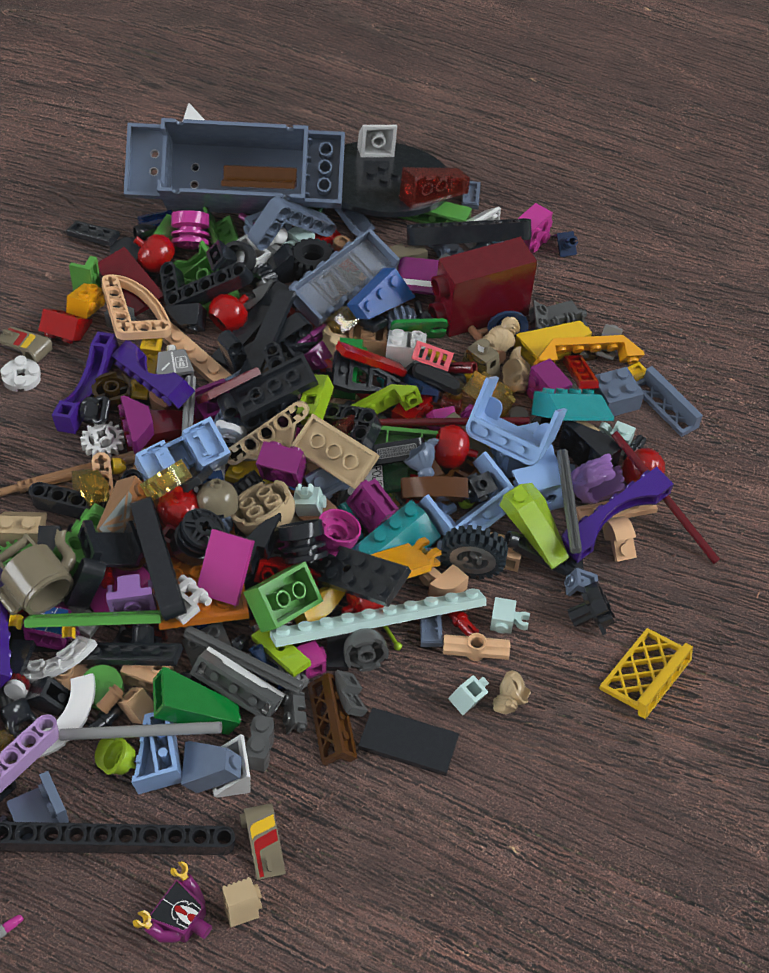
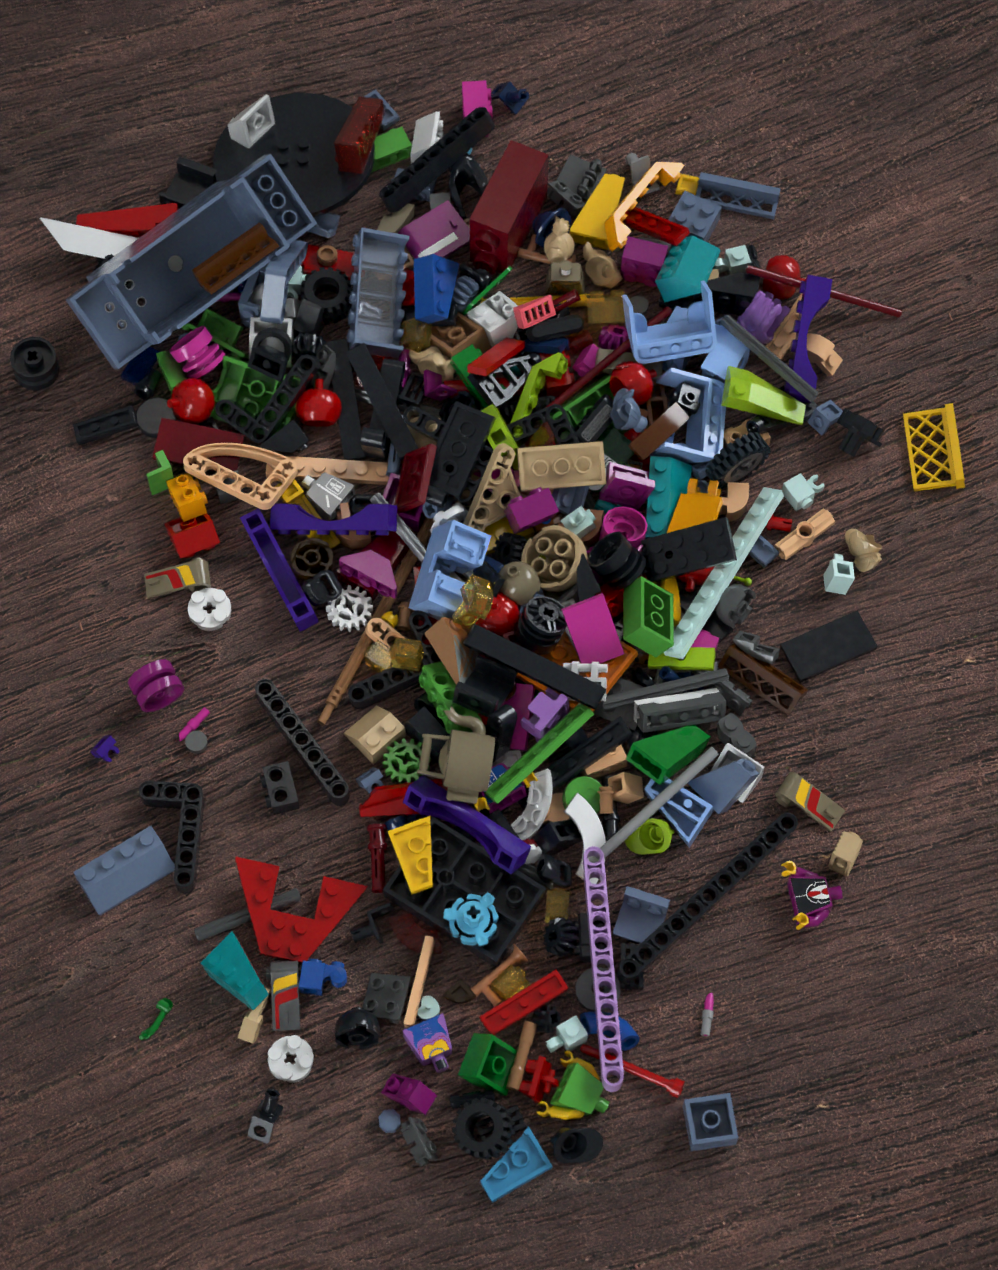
camera: 40 degrees left, 15 degrees up
(94, 173) = (34, 363): none -> black wheel

